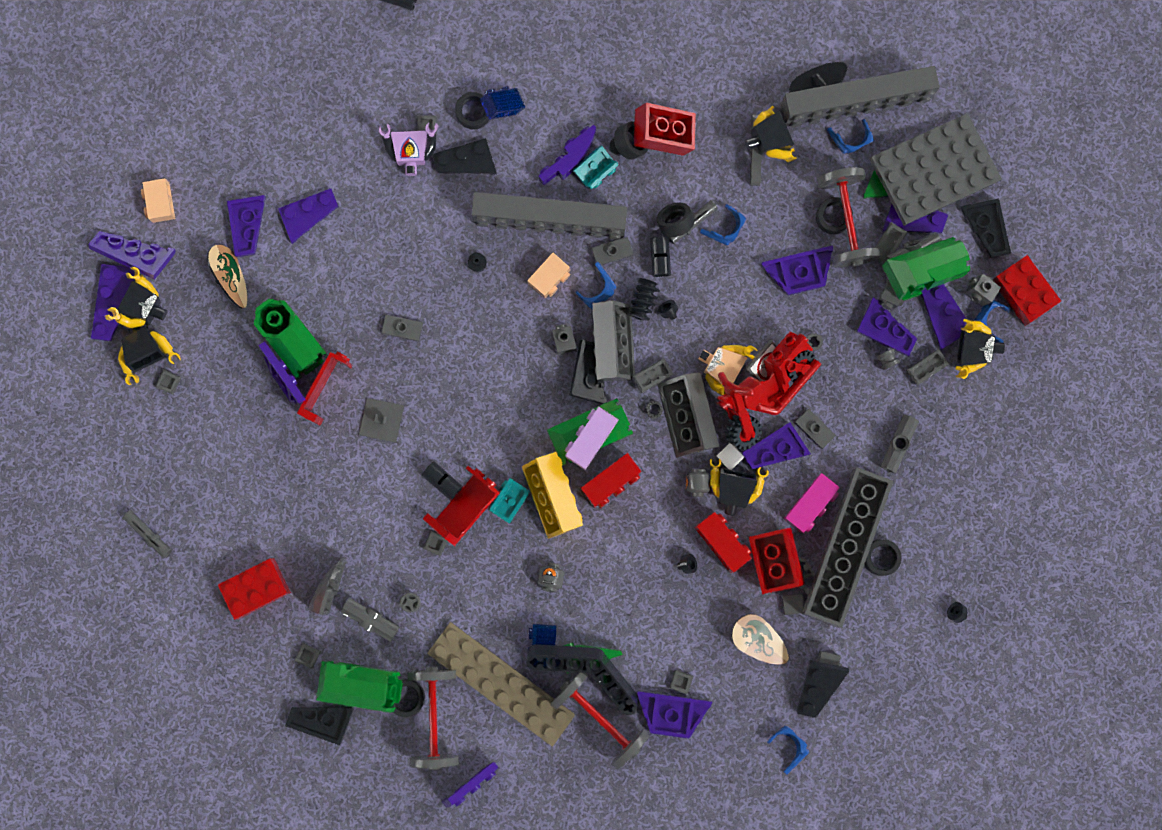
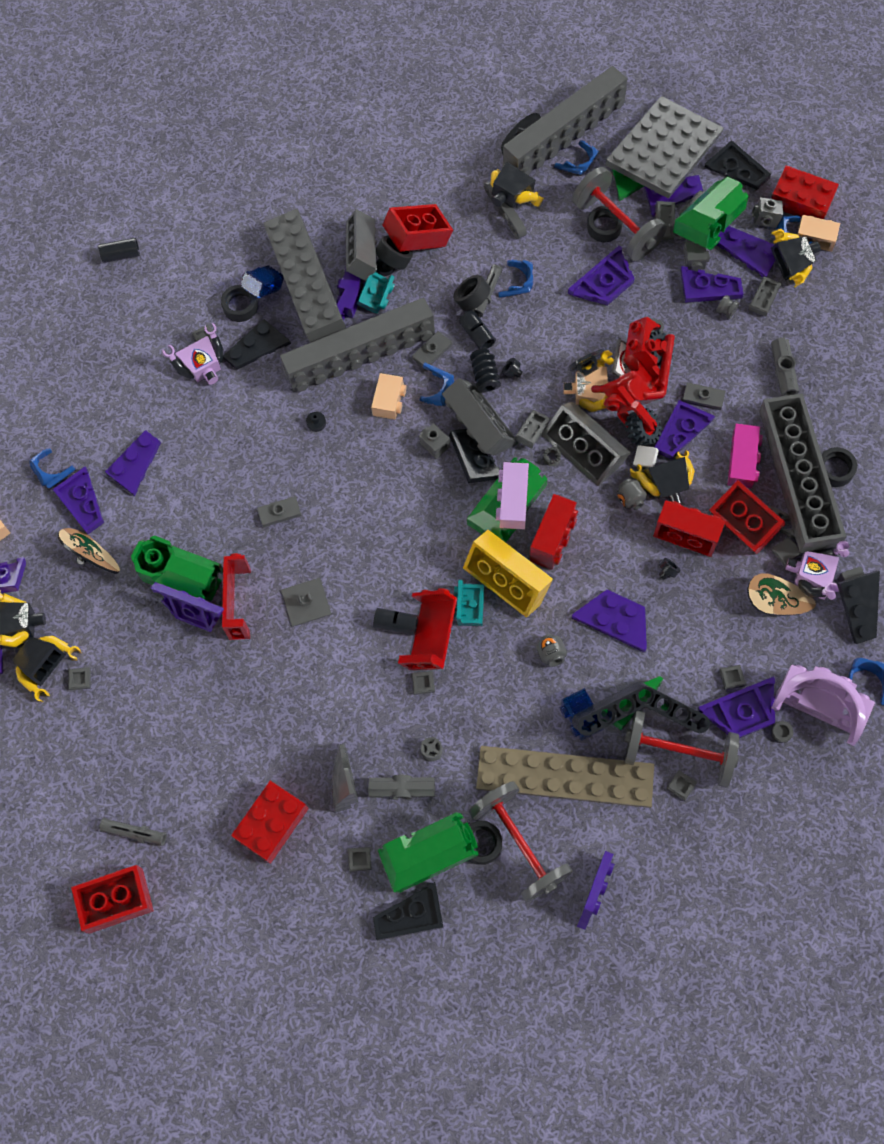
camera: 25 degrees left, 15 degrees down
(104, 580) = (112, 899): none -> red brick
(225, 186) = (46, 479): none -> blue helmet
(540, 121) = (304, 276): none -> dark grey brick
(586, 743) = (681, 785): none -> dark grey tile
(605, 117) = (360, 245): none -> dark grey brick
(620, 580) = (616, 618): none -> dark purple wing
(691, 747) = (782, 732): none -> dark grey tile
(729, 344) = (582, 361): none -> black shield
(740, 746) = (825, 698): none -> lavender piece
(803, 638) = (817, 571): none -> lavender torso
(1014, 333) = (819, 230): none -> light nougat brick

